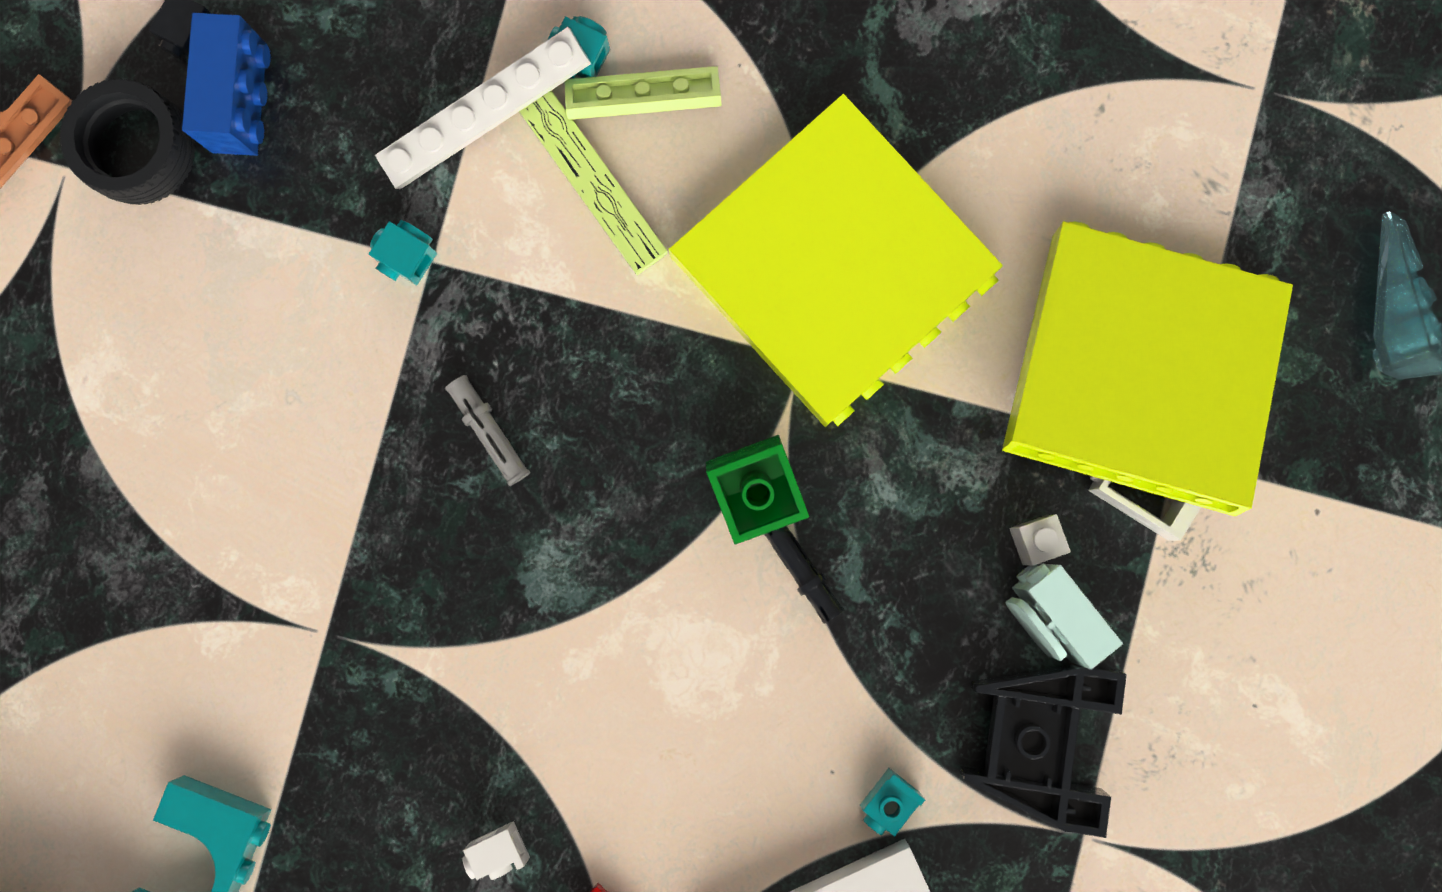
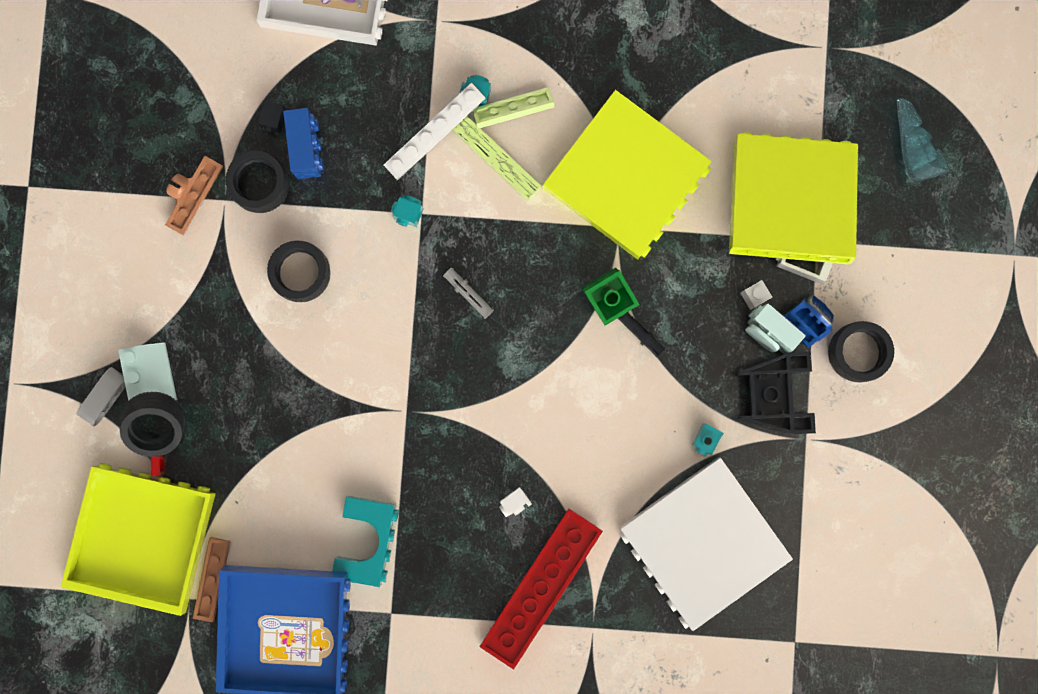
camera: 15 degrees left, 0 degrees up
(126, 313) = (283, 252): none -> black tyre
(1139, 608) = (812, 319): none -> blue piece
(1270, 704) = (884, 344): none -> black tyre

